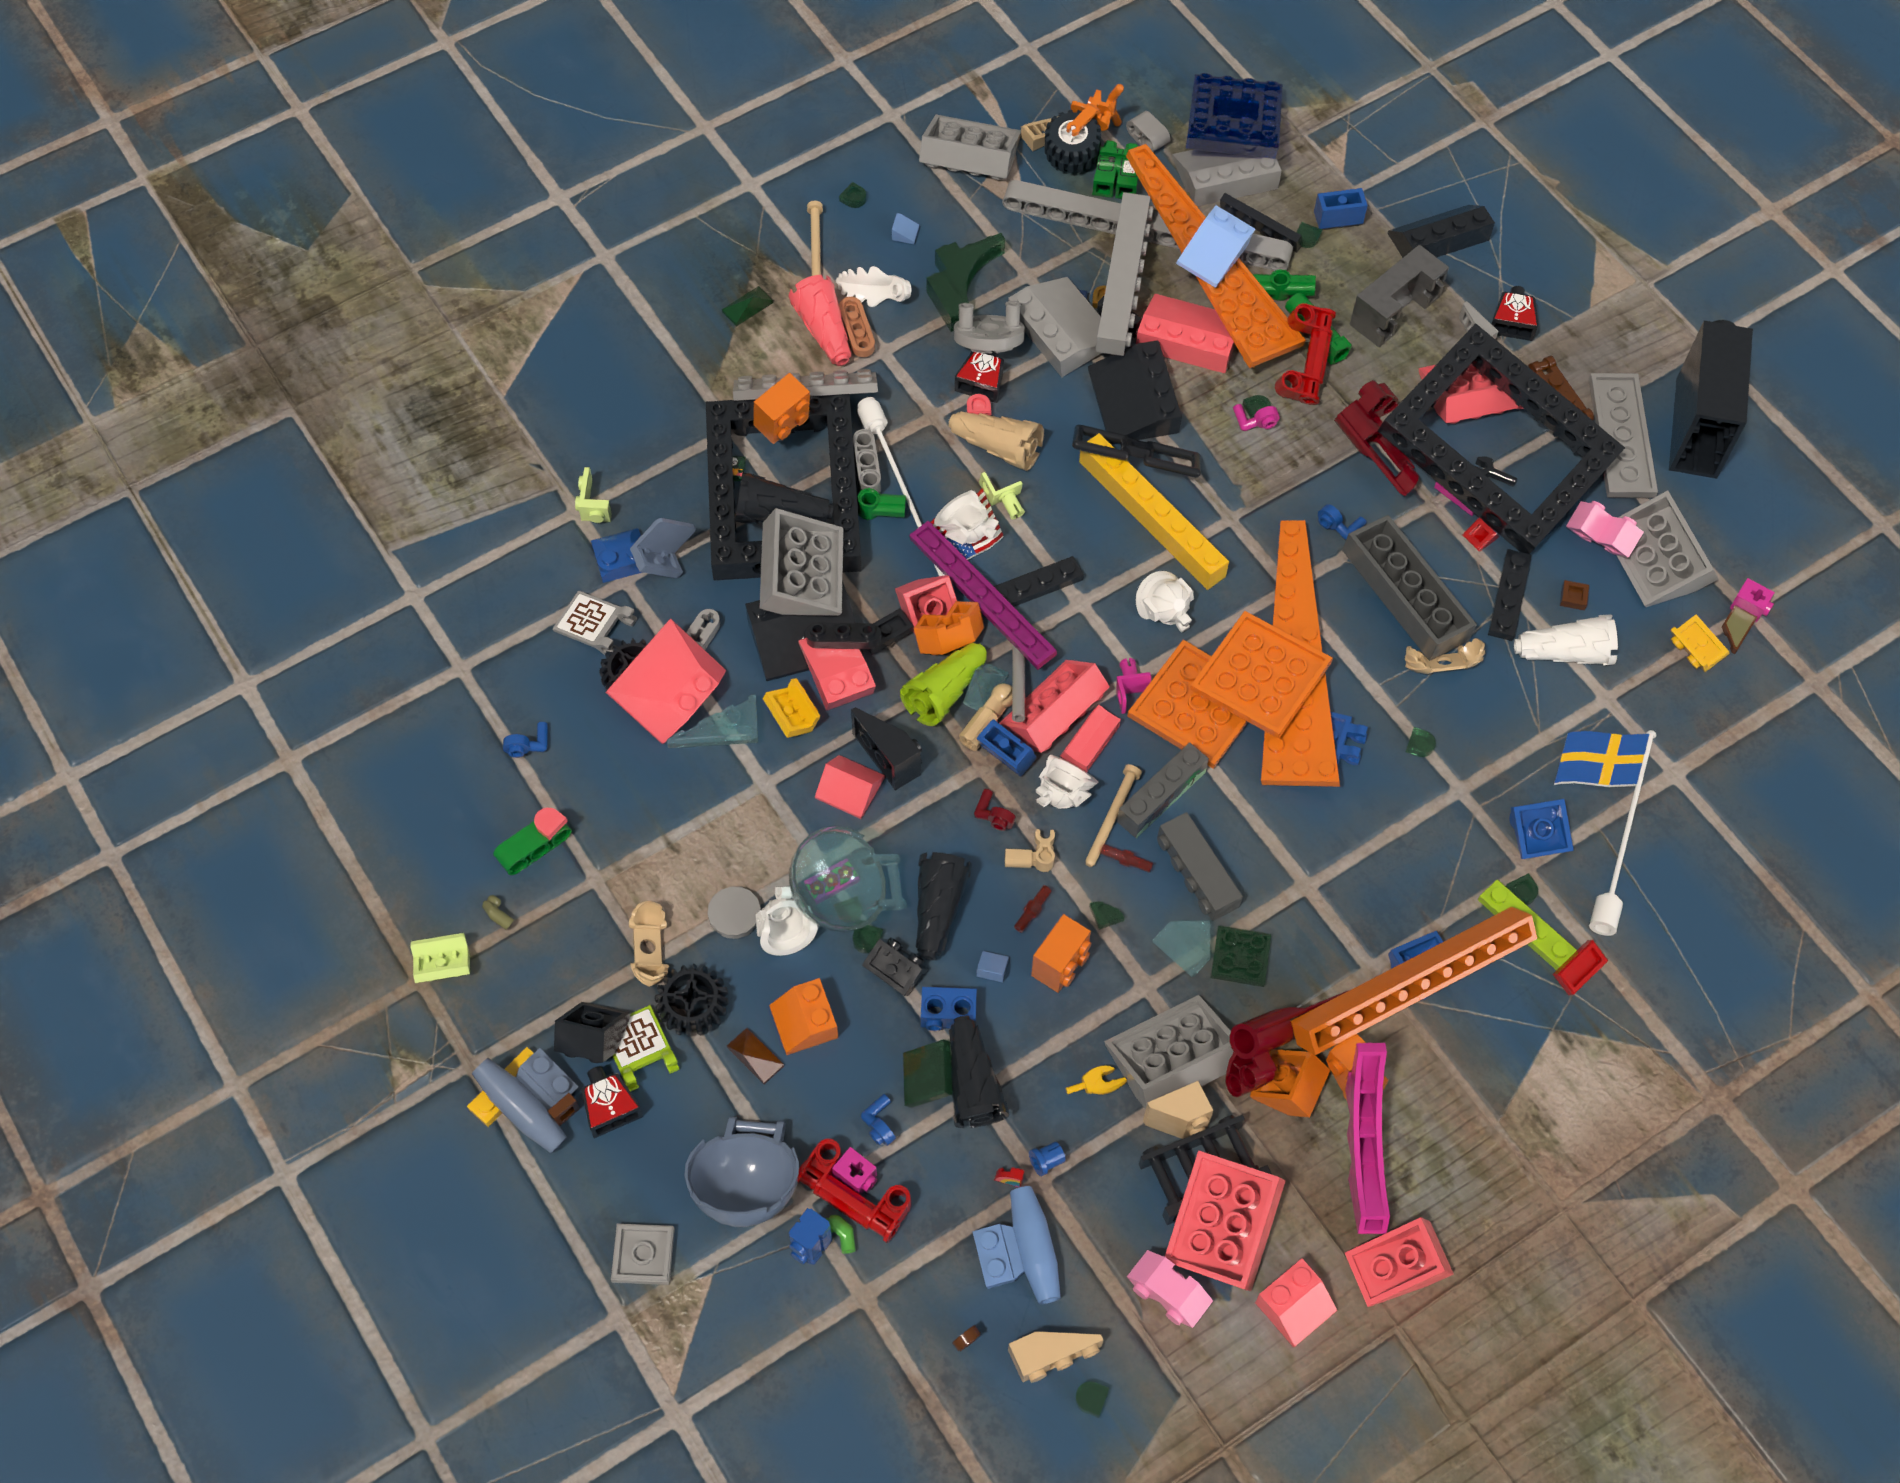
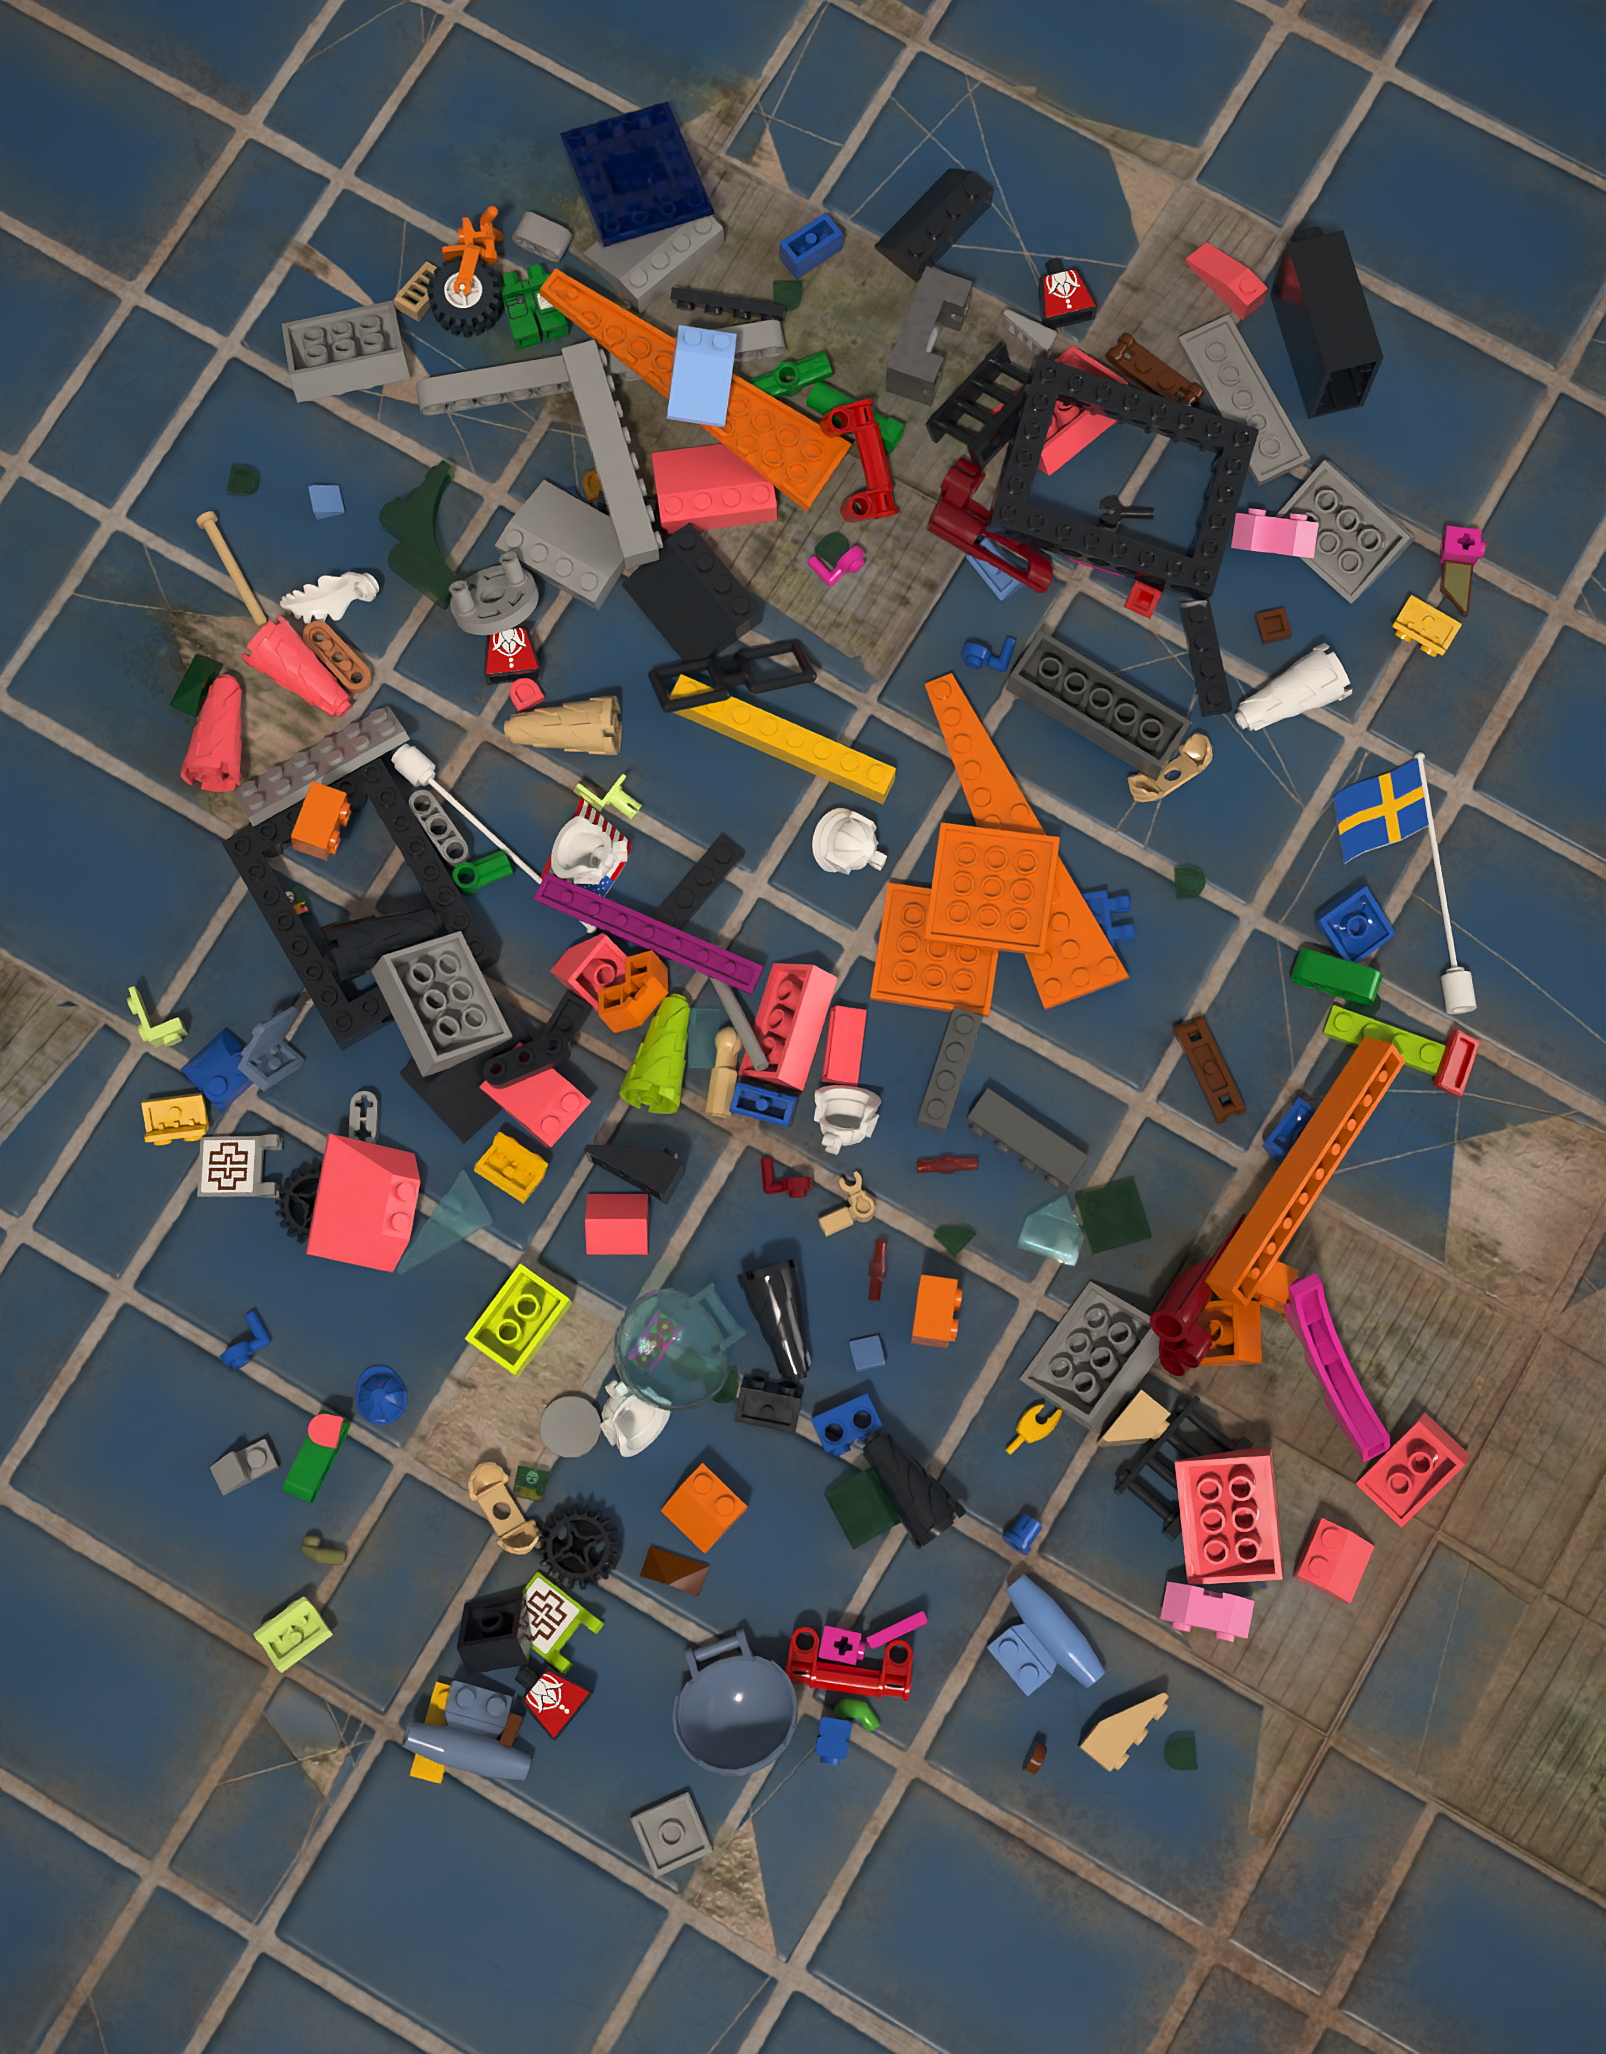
camera: 25 degrees left, 15 degrees up
(473, 826) = (244, 1466): none -> light grey slope
(568, 567) = (175, 1118): none -> yellow bracket
(605, 825) = (380, 1395): none -> blue piece
(680, 939) = (530, 1484): none -> clear green tile
(736, 814) = (518, 1320): none -> neon yellow brick
(739, 341) = (216, 741): none -> coral cone
(879, 1130) = (843, 1591): blue plate -> none
(912, 1181) = (896, 1630): none -> dark pink tile
(1013, 1178) = (994, 1571): red tile -> none
(1130, 682) = (855, 960): dark pink bracket -> none
(1131, 773) = (908, 1112): tan bar -> none
(1372, 882) = (1209, 1069): none -> reddish brown plate
(1373, 477) = (997, 580): none -> medium blue slope
(1406, 350) = (999, 427): none -> black fence
(1509, 858) = (1336, 976): none -> green beam
(1649, 354) = (1228, 279): none -> coral slope

